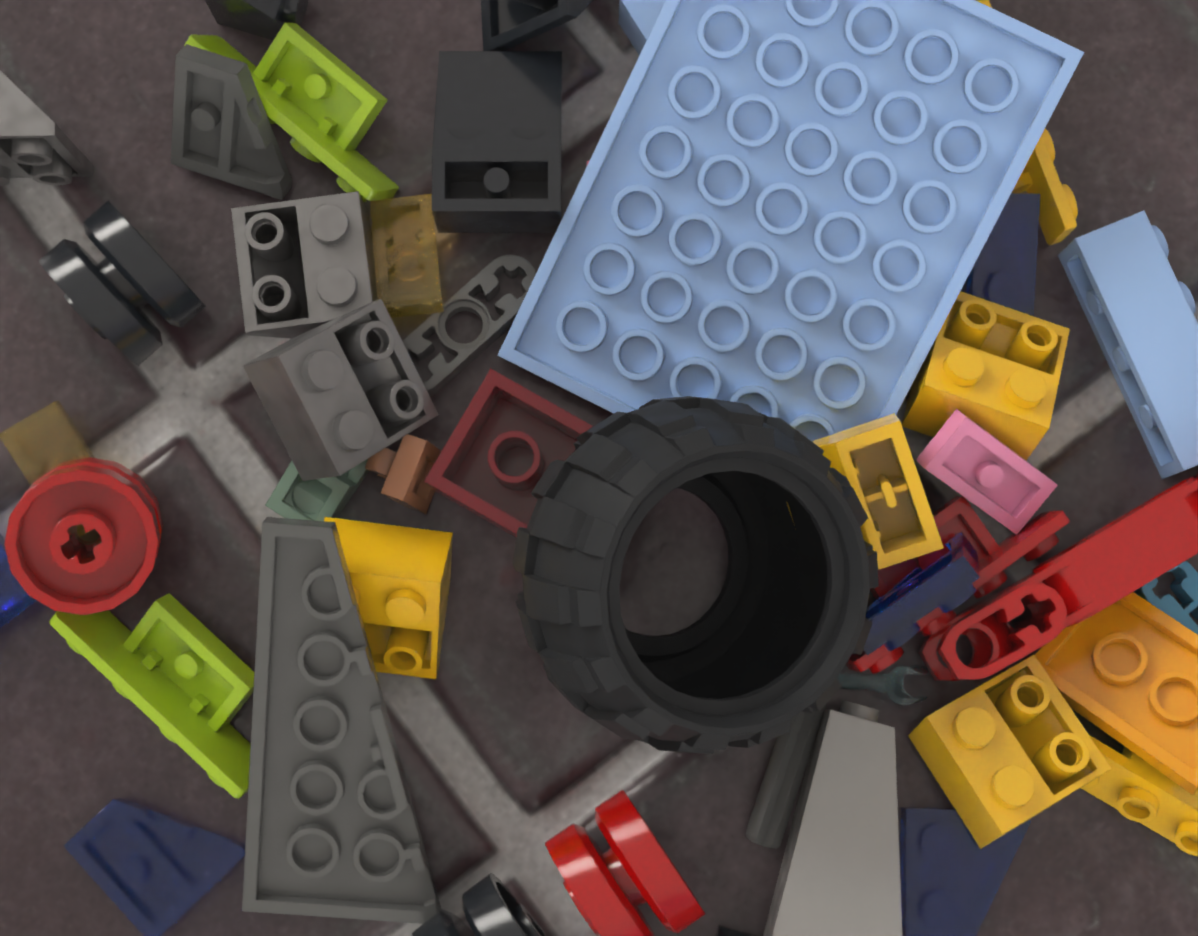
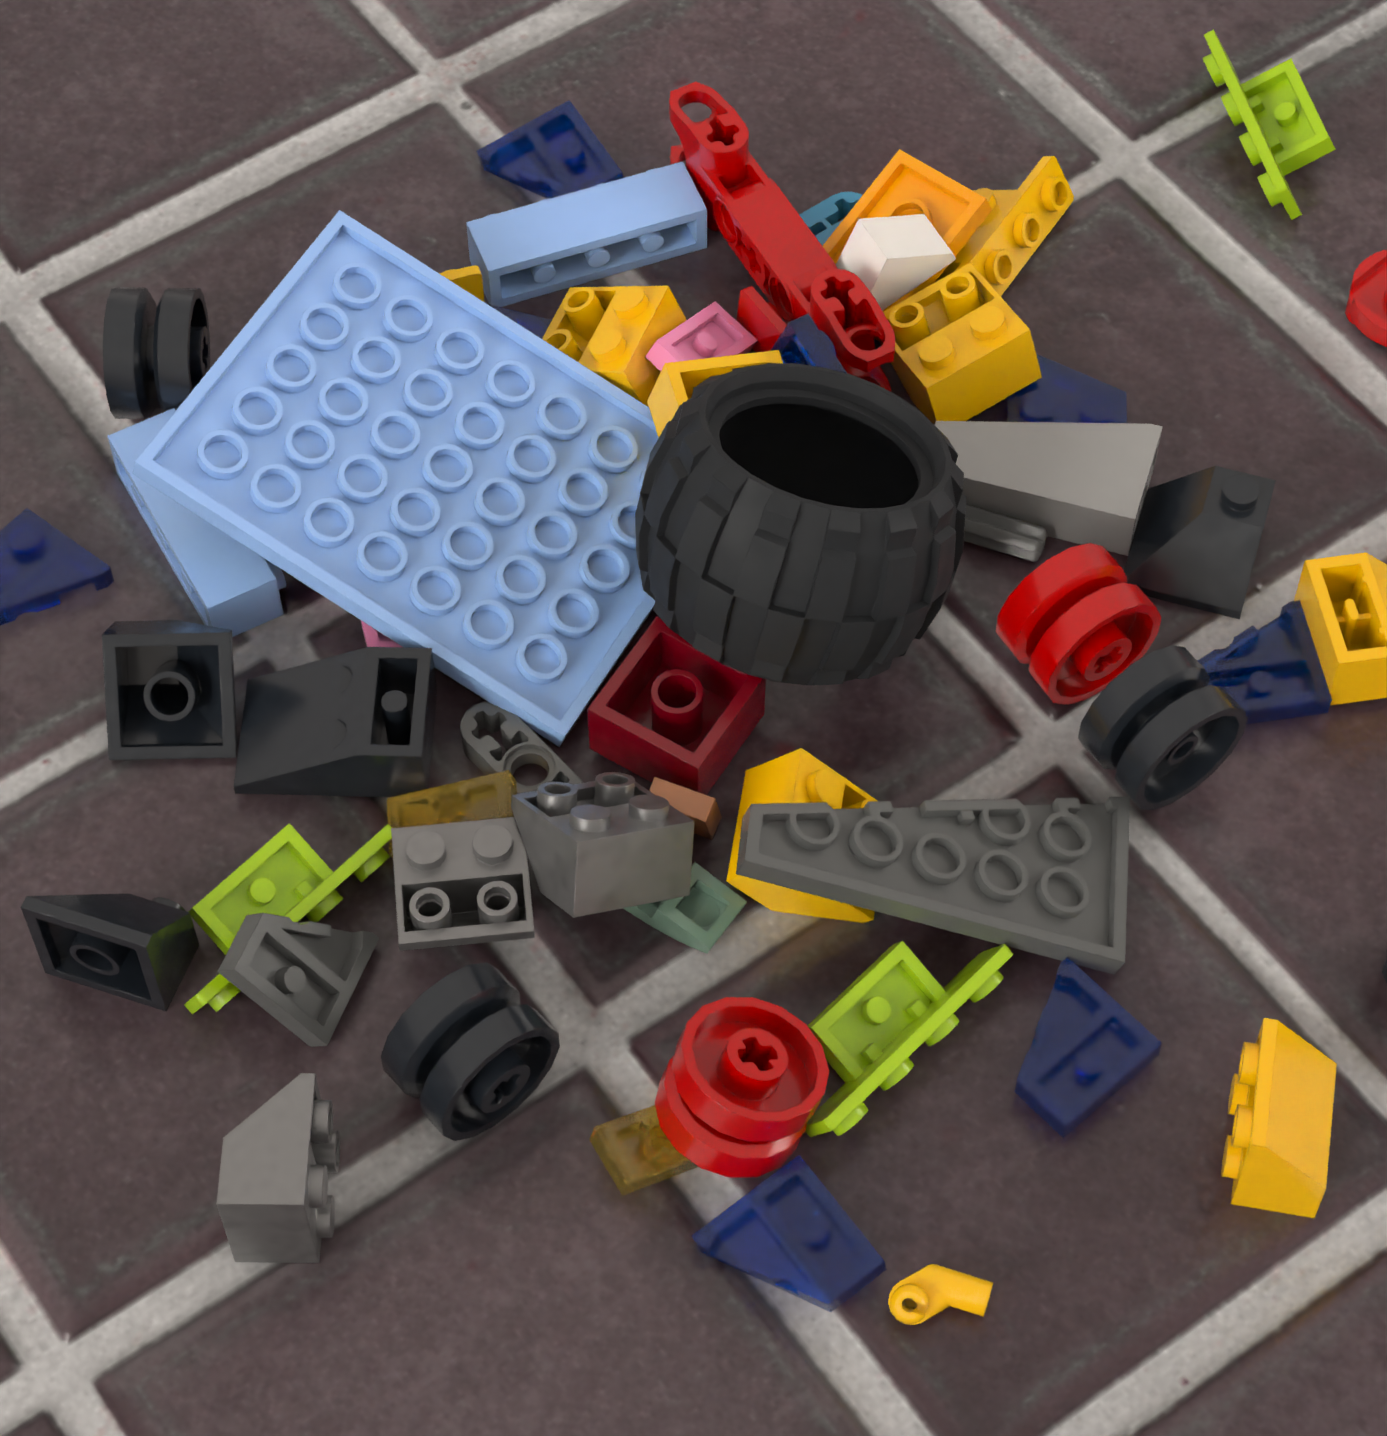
camera: 85 degrees left, 25 degrees down
(1111, 678) = (894, 255): none -> white slope

